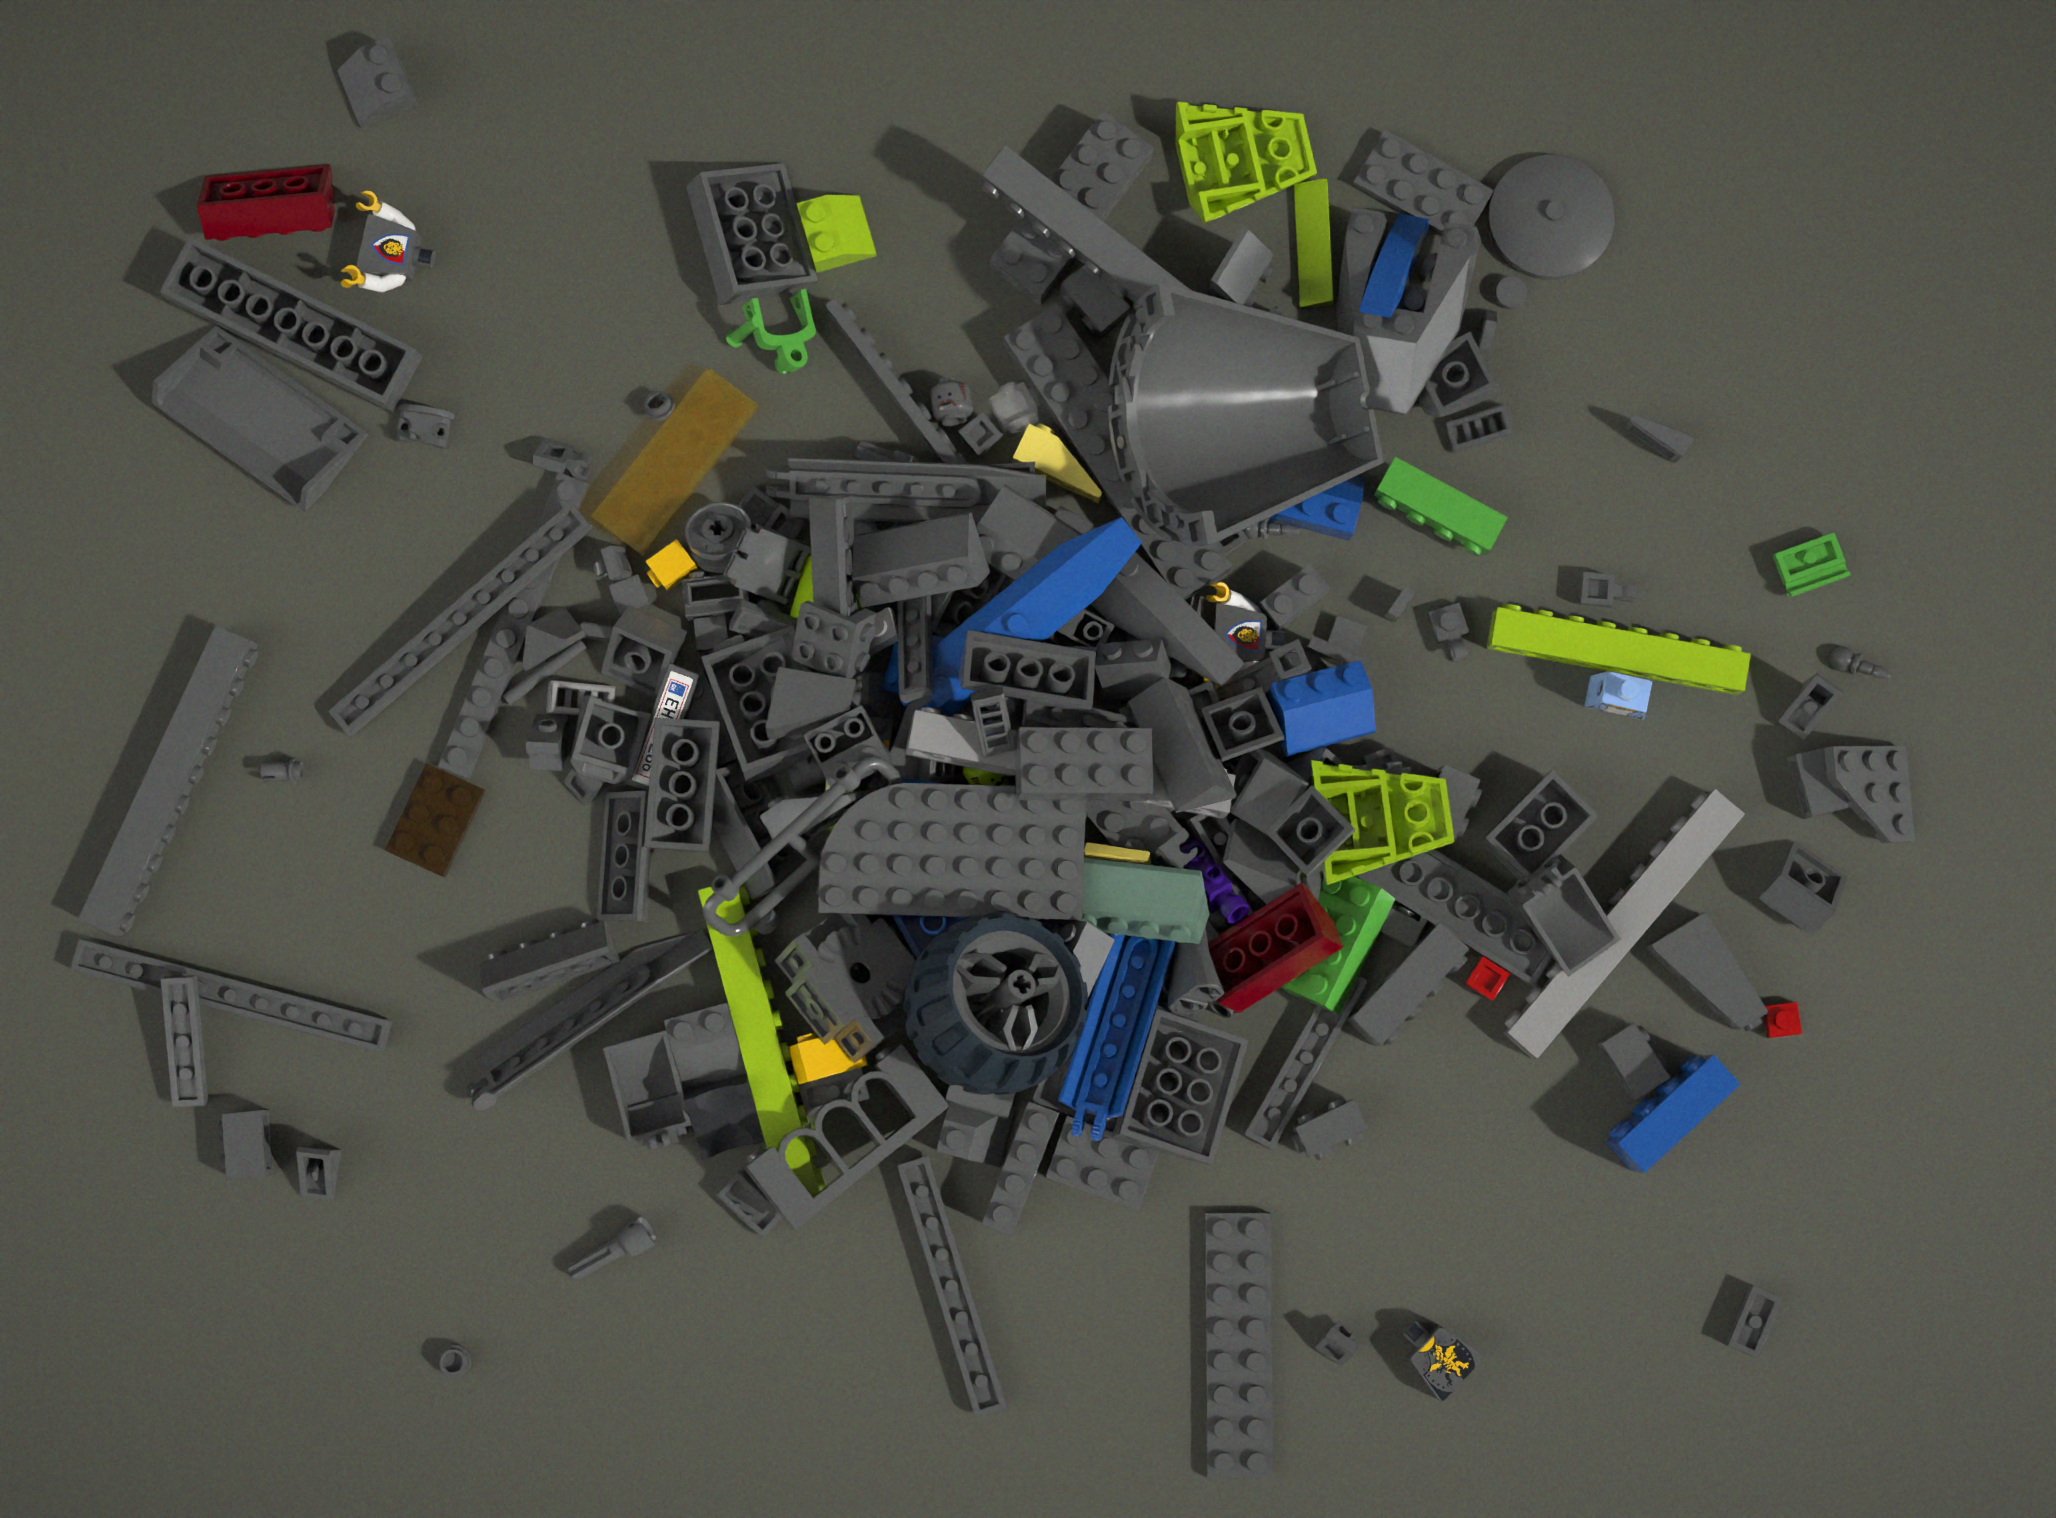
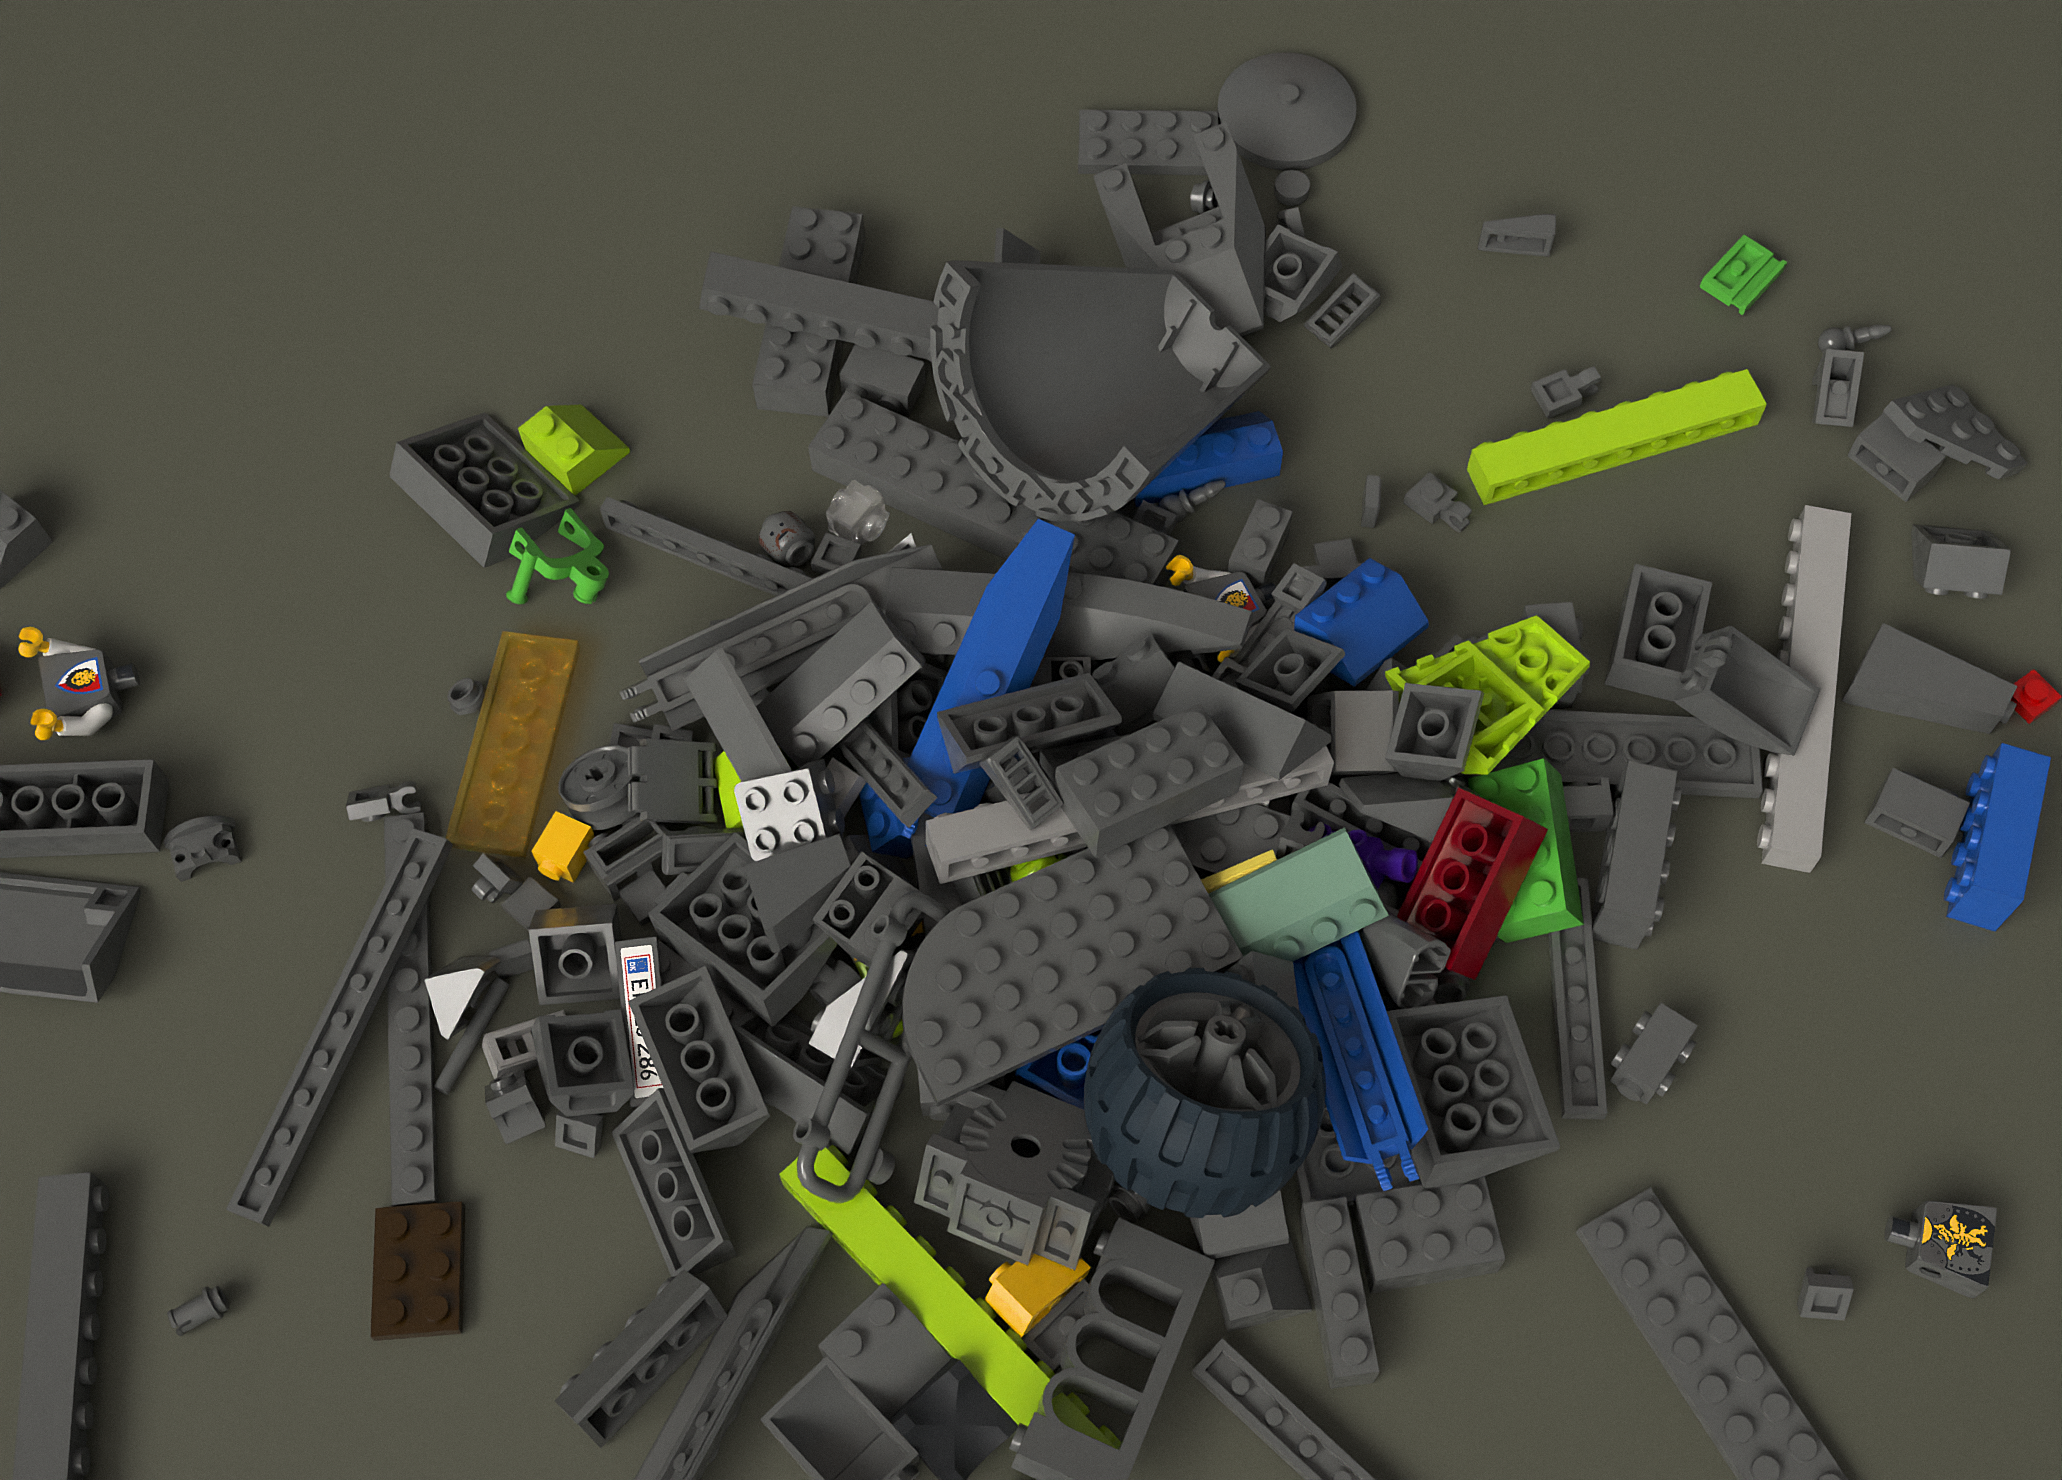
camera: 25 degrees left, 20 degrees down
(1055, 462) = (952, 544): light yellow slope -> none
(1239, 155) = (948, 193): lime wedge -> none
(1313, 244) = (1068, 224): lime slope -> none
(1394, 266) = (1166, 204): blue slope -> none
(1440, 507) = (1351, 392): bright green brick -> none
(1486, 978) = (1708, 812): red plate -> none
(1619, 694) = (1648, 470): light blue torso -> none

